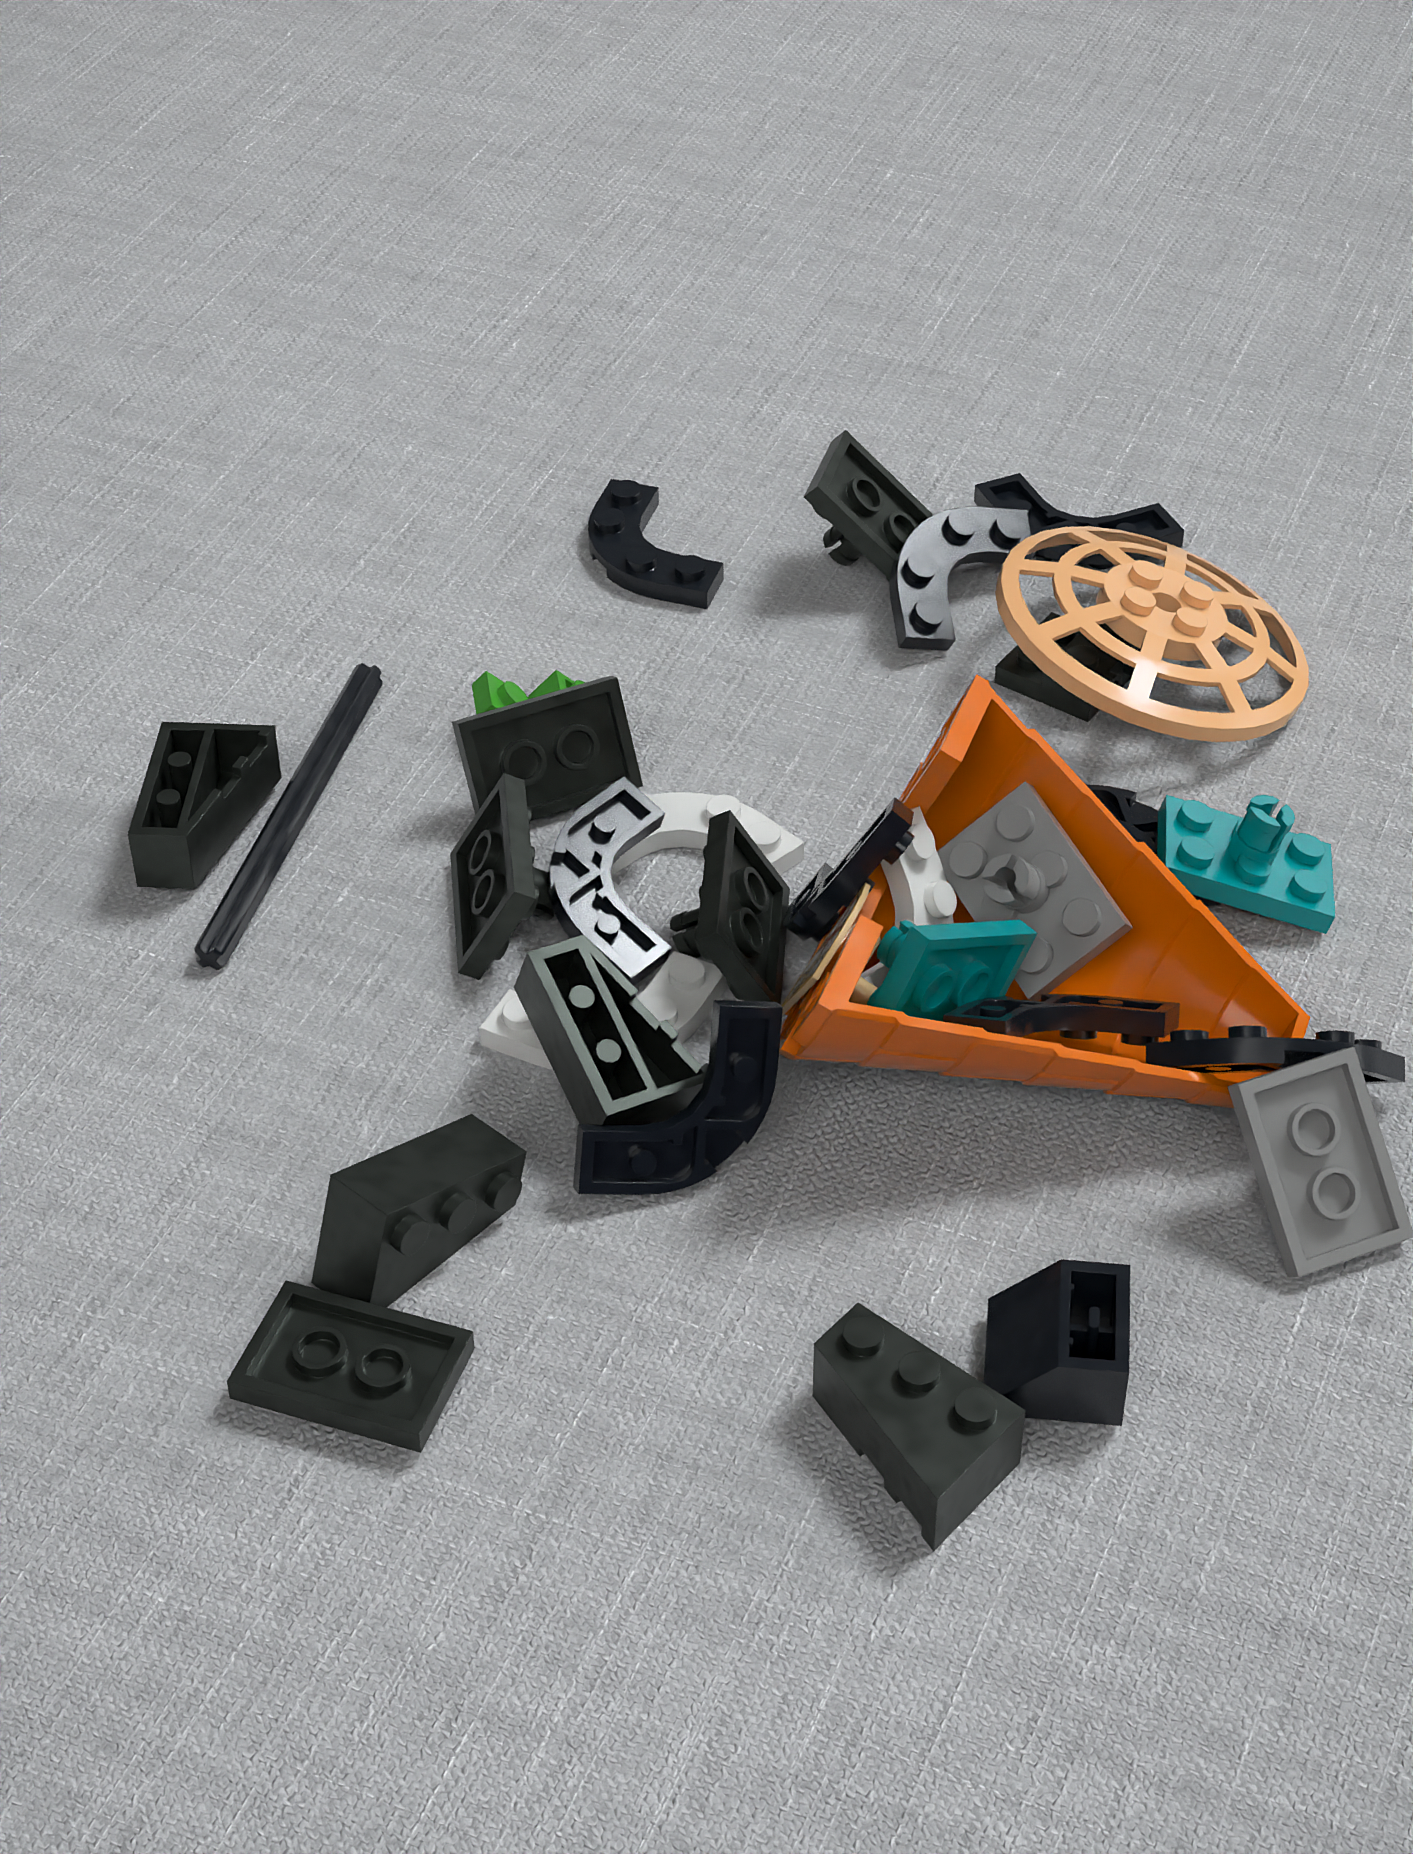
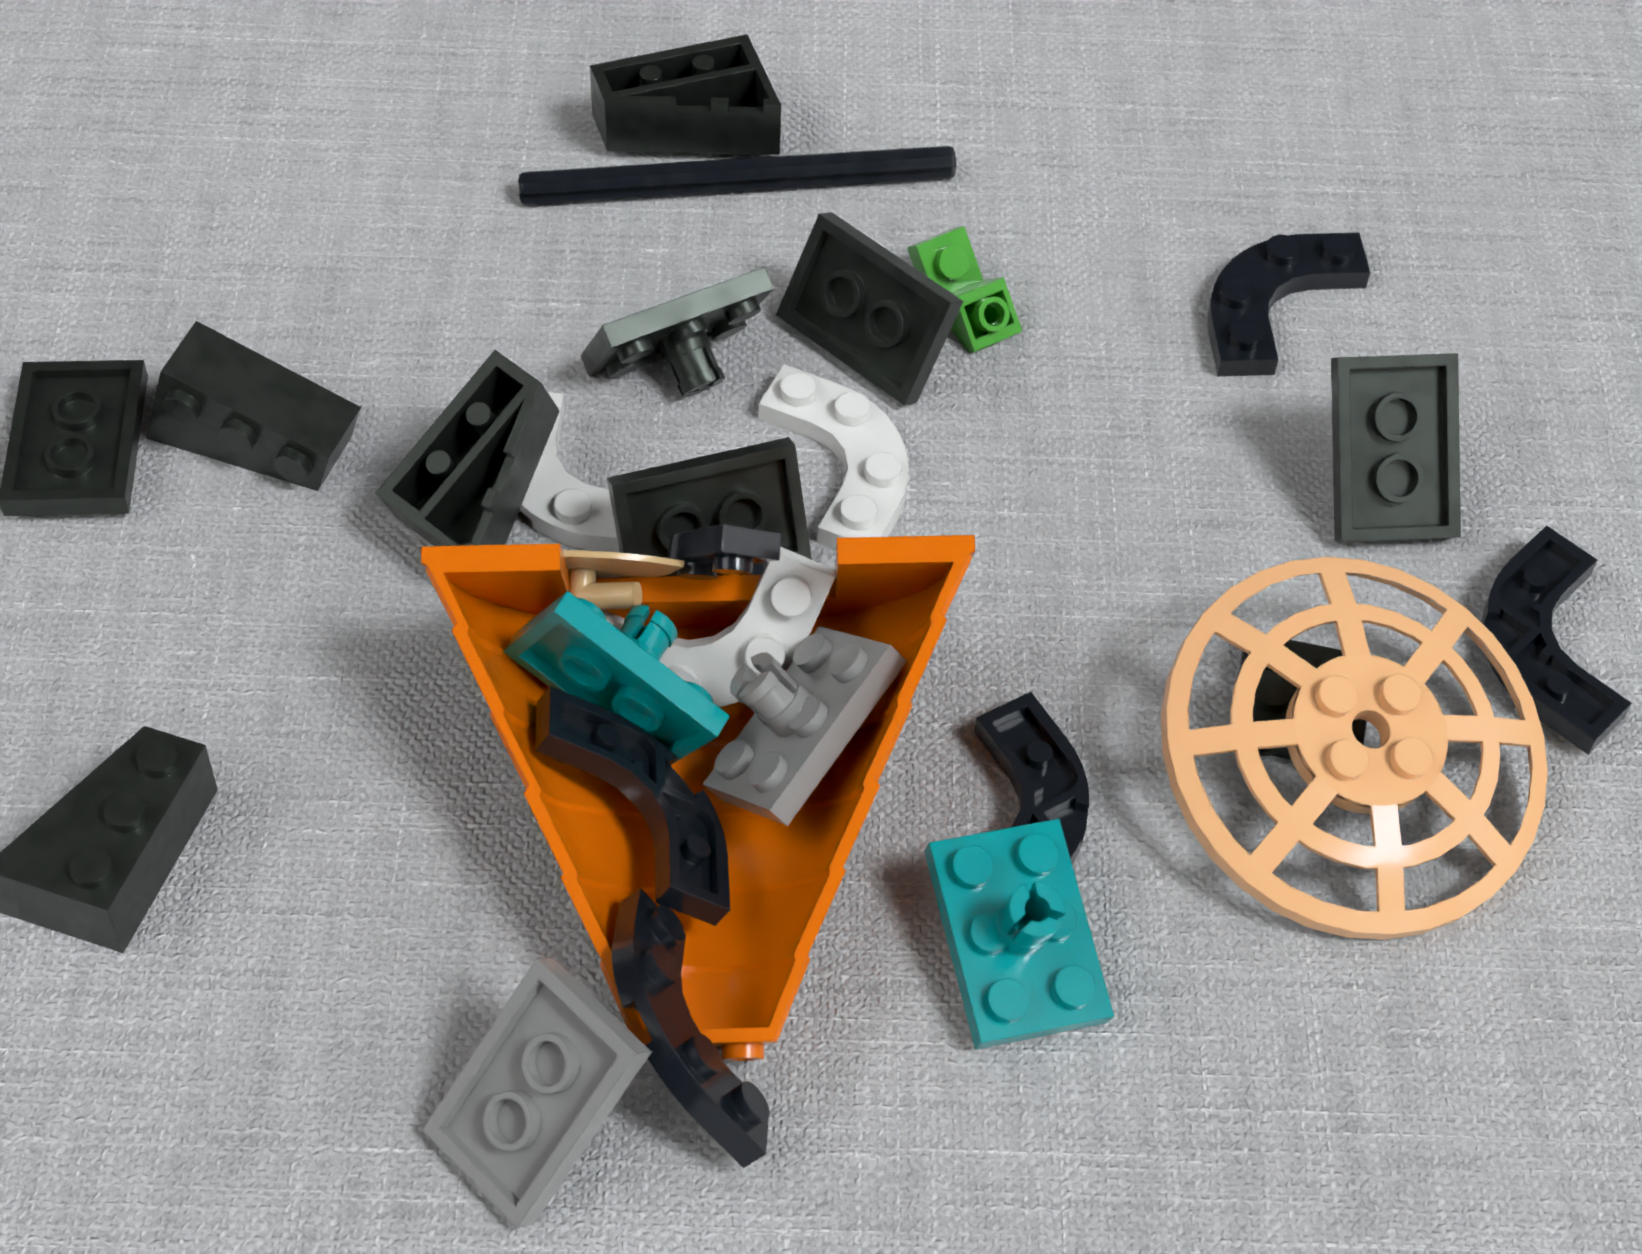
camera: 65 degrees right, 10 degrees up
(583, 884) = (718, 383): plate -> none
(708, 1131) = (383, 560): black plate -> none
(930, 554) = (1378, 514): plate -> none
(1063, 1342) = (236, 943): black slope -> none

